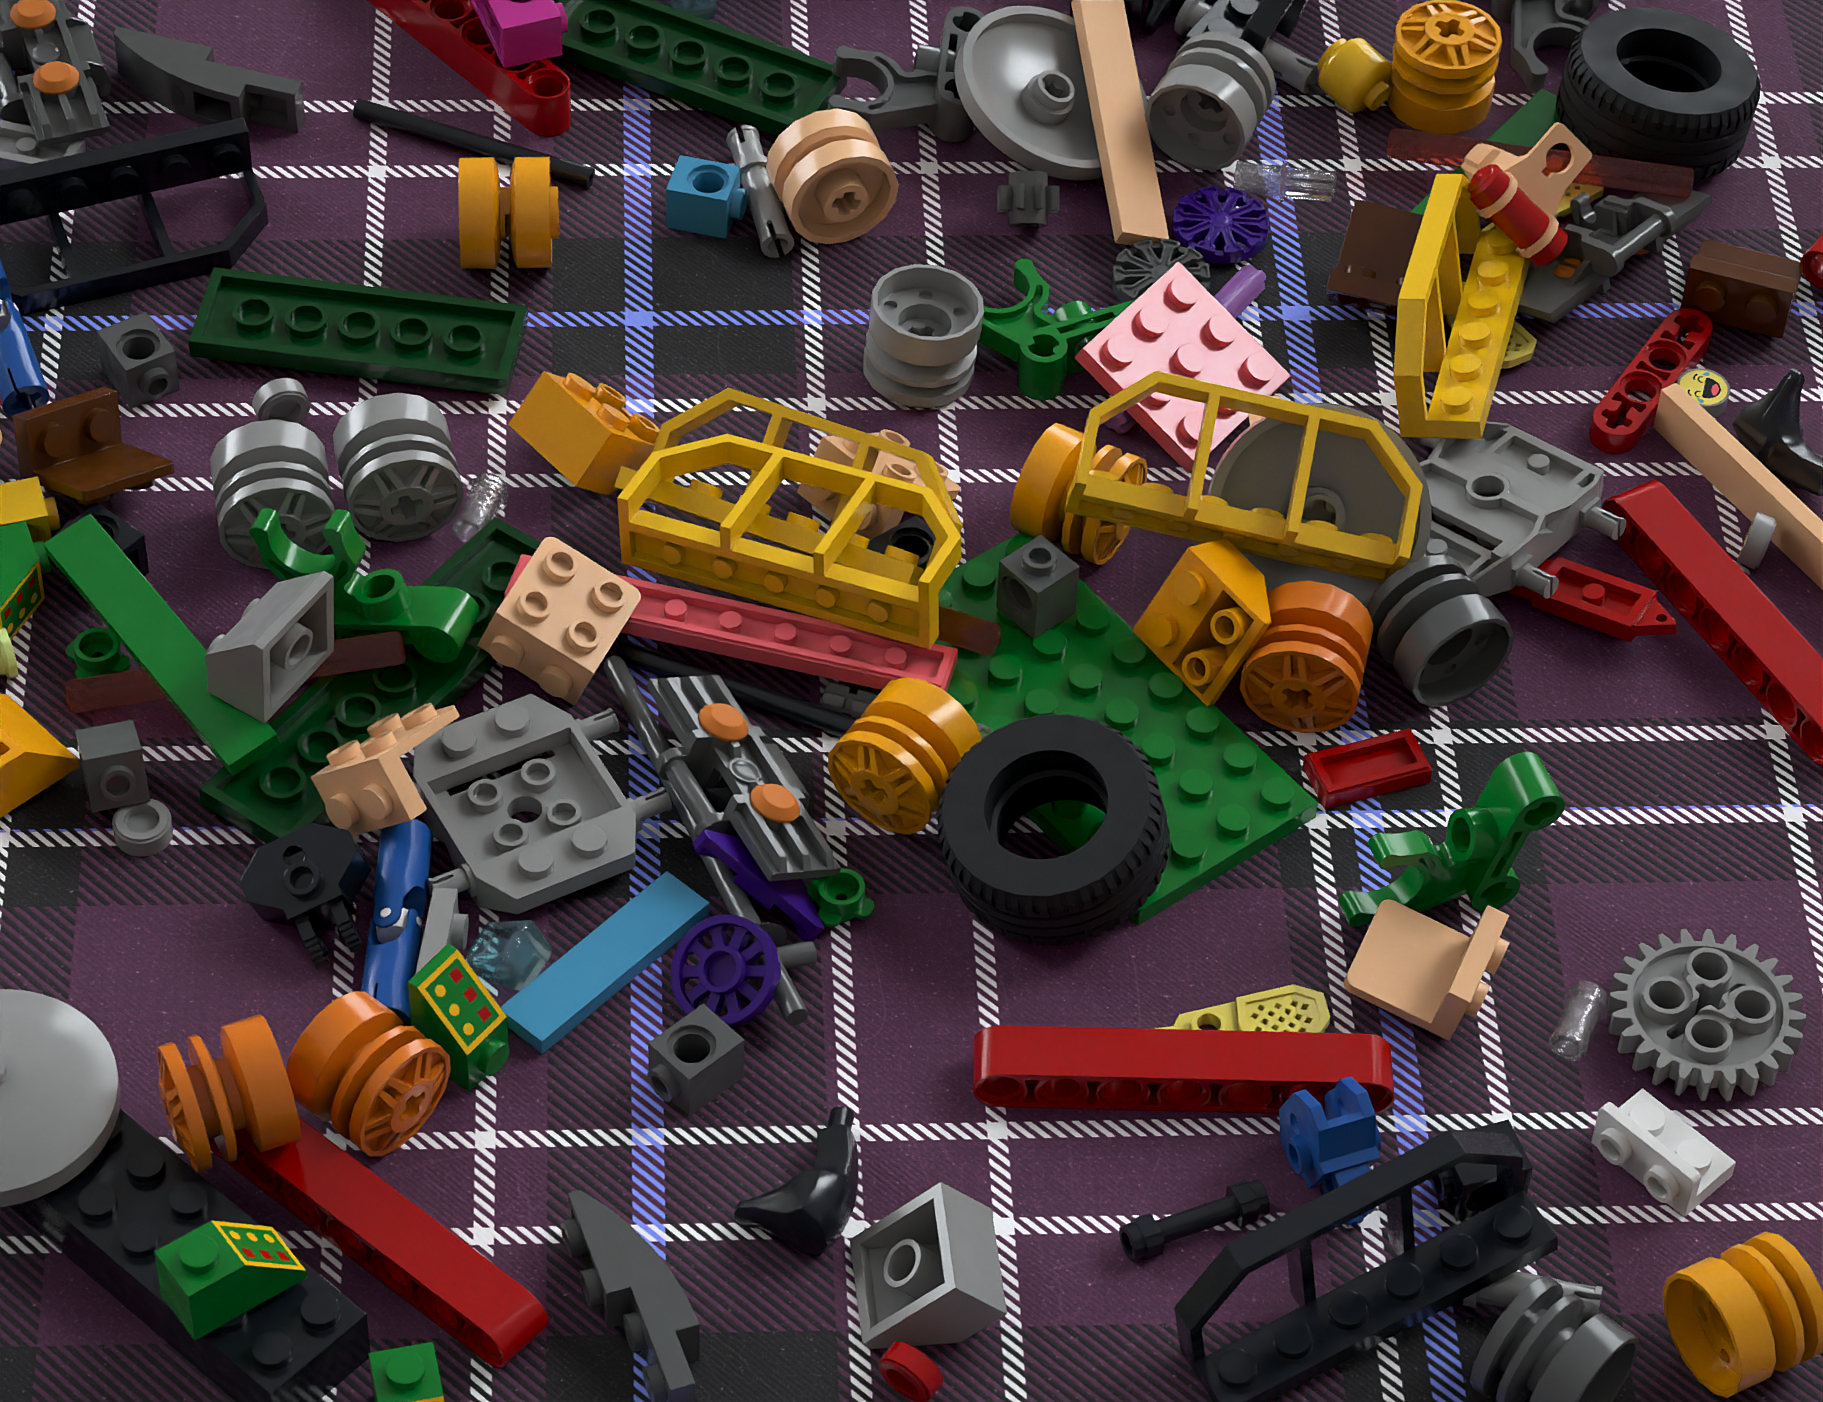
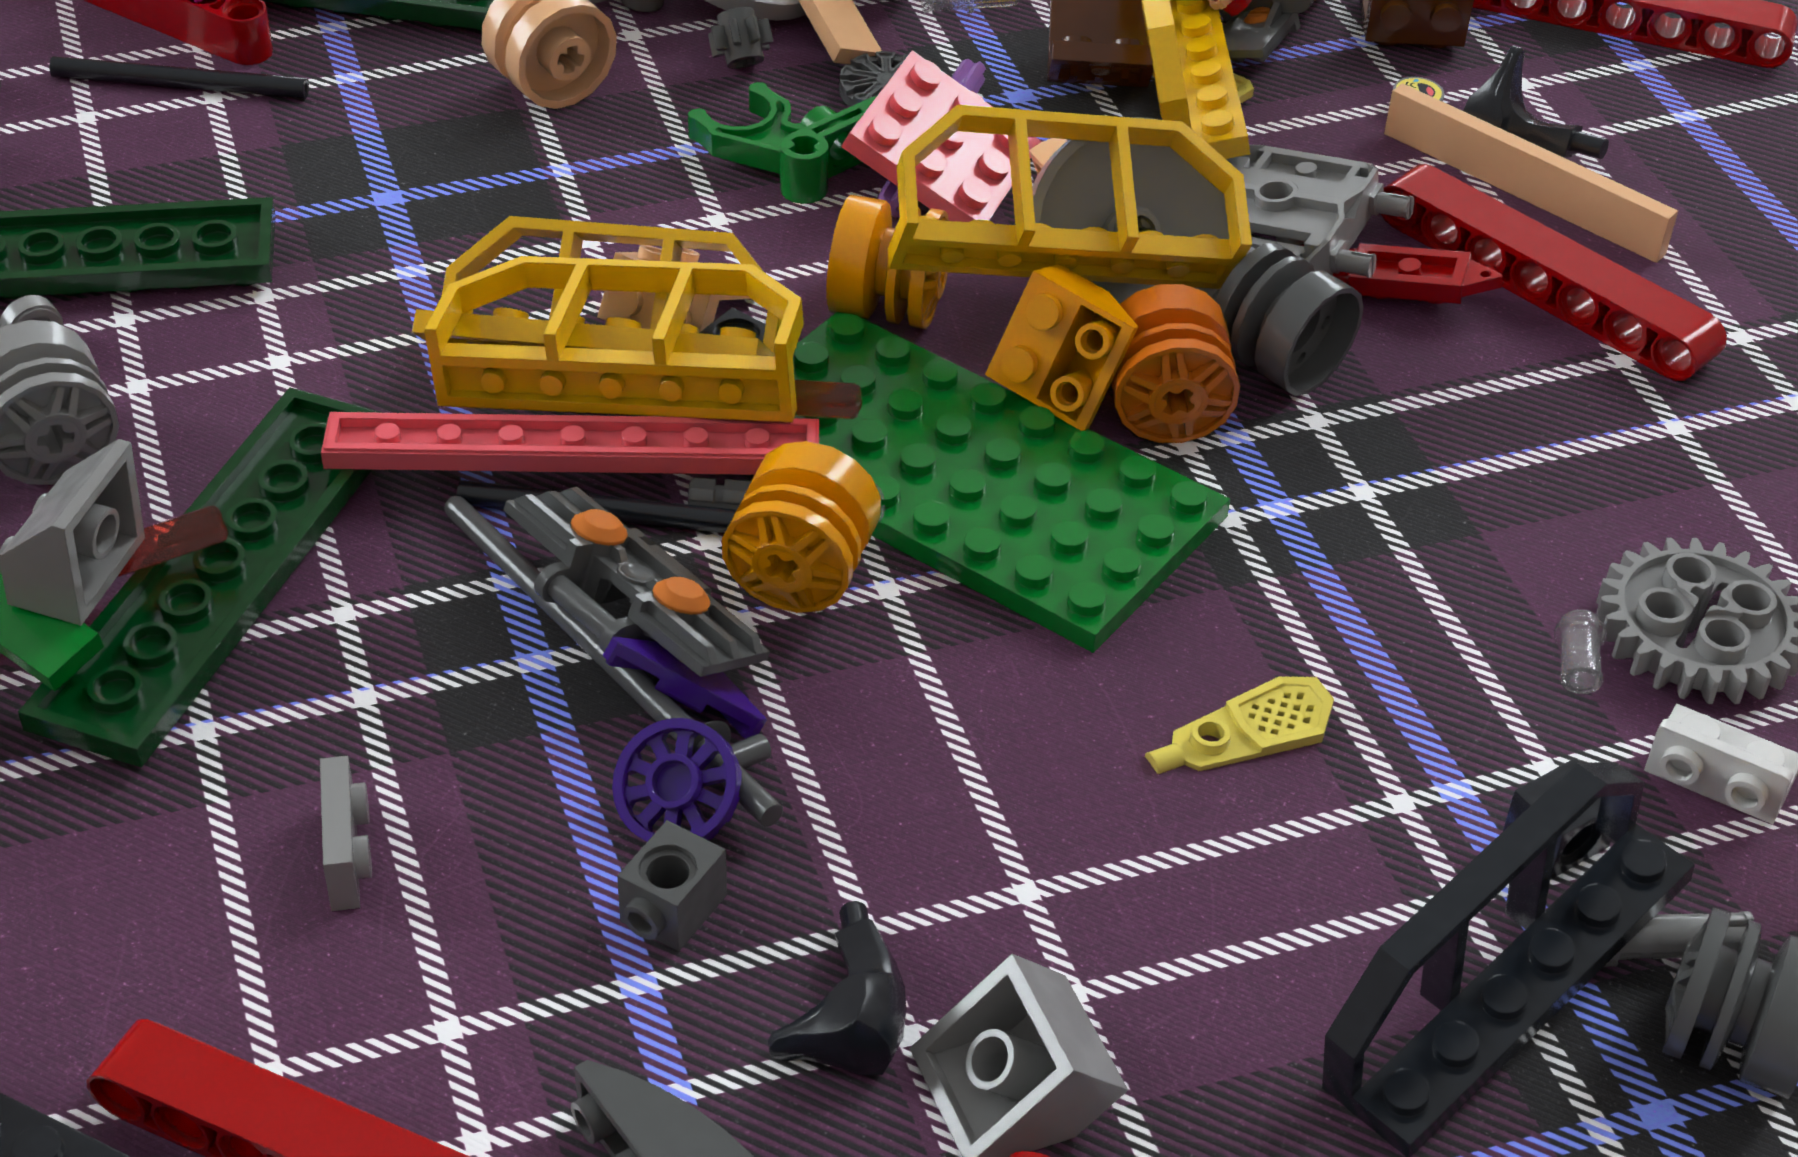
camera: 15 degrees left, 5 degrees down
(228, 1093) = (117, 1042): orange wheel -> none
(310, 886) = (172, 791): black hinge -> none
(367, 781) = (226, 659): light nougat bracket -> none
(367, 1073) = (291, 980): orange wheel -> none
(397, 467) = (172, 355): light grey wheel -> none
(398, 913) = (284, 819): blue piece -> none
(427, 616) = (245, 487): green piece -> none
(459, 1016) = (384, 899): green slope -> none
(485, 498) = (273, 375): clear pin -> none
(491, 213) = (245, 114): light orange wheel -> none
(509, 953) = (421, 818): clear light blue slope -> none
(560, 619) = (388, 466): light nougat bracket -> none
(583, 819) = (464, 658): light grey piece -> none
(584, 430) = (361, 293): light orange slope -> none
(604, 962) = (531, 807): dark azure tile -> none
(704, 197) = (425, 83): dark azure brick -> none
(761, 195) = (469, 62): light grey pin -> none
(846, 886) = (775, 684): green plate -> none
(922, 335) = (682, 155): light grey wheel -> none
(1037, 586) = (881, 346): dark grey brick -> none
(1065, 895) = (972, 497): black tyre -> none
(1146, 1238) = (1241, 968): black bar -> none
(1172, 1068) = (1202, 785): red beam -> none
(1221, 225) = (928, 31): dark purple wheel -> none
(1333, 1144) = (1406, 827): blue hinge -> none
(1367, 768) = (1260, 461): red tile -> none
(1426, 967) = (1413, 633): light nougat bracket -> none
(1477, 849) = (1421, 505): green piece -> none
(1646, 378) = (1364, 93): red beam -> none
(1757, 540) = (1532, 196): light grey tile -> none

